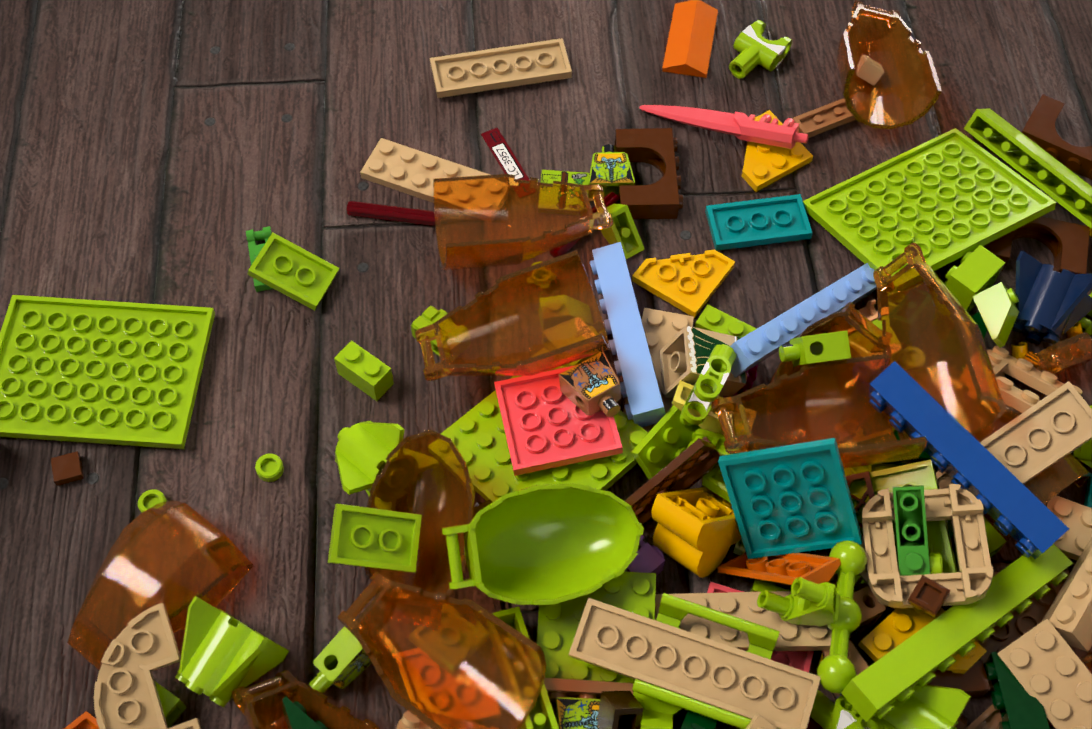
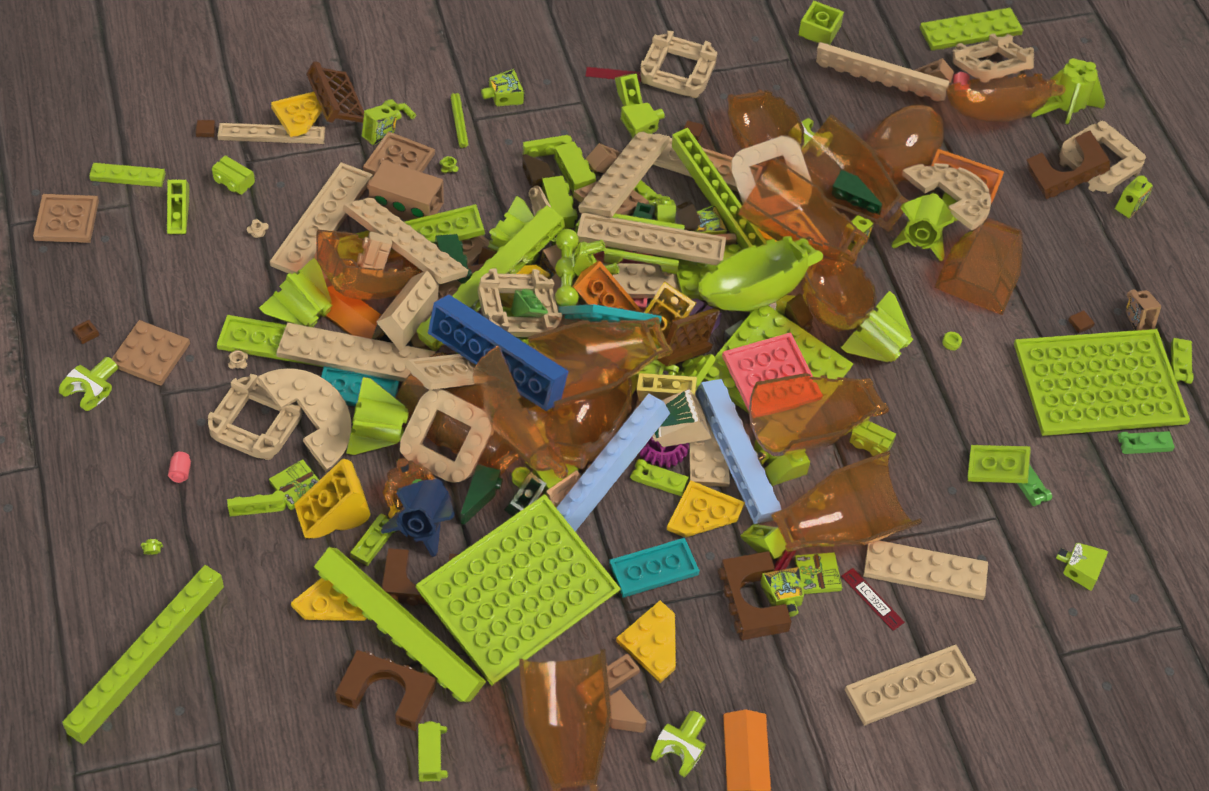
camera: 165 degrees right, 5 degrees down
(85, 284) = (1146, 442): none -> bright green plate
(149, 499) = (1015, 310): lime tile -> none
(249, 151) = (1083, 563): none -> lime torso
(364, 370) = (916, 403): lime brick -> none
(374, 538) = (863, 275): lime plate -> none
(391, 213) = (946, 532): dark red axle -> none
(592, 386) = (747, 379): torso -> none
(709, 383) = (676, 375): lime connector -> none
(735, 124) = (686, 644): coral piece -> none
(816, 348) = (605, 403): lime torso -> none
(817, 82) = (625, 715): none -> medium nougat slope
(869, 70) = (575, 734): tan slope -> none
(928, 596) = (516, 274): reddish brown tile -> none
(936, 565) = (509, 302): lime tile -> none
(974, 274) = (480, 521): lime brick -> none
(998, 311) = (465, 490): slope -> none
(1022, 77) = (430, 751): none -> lime brick

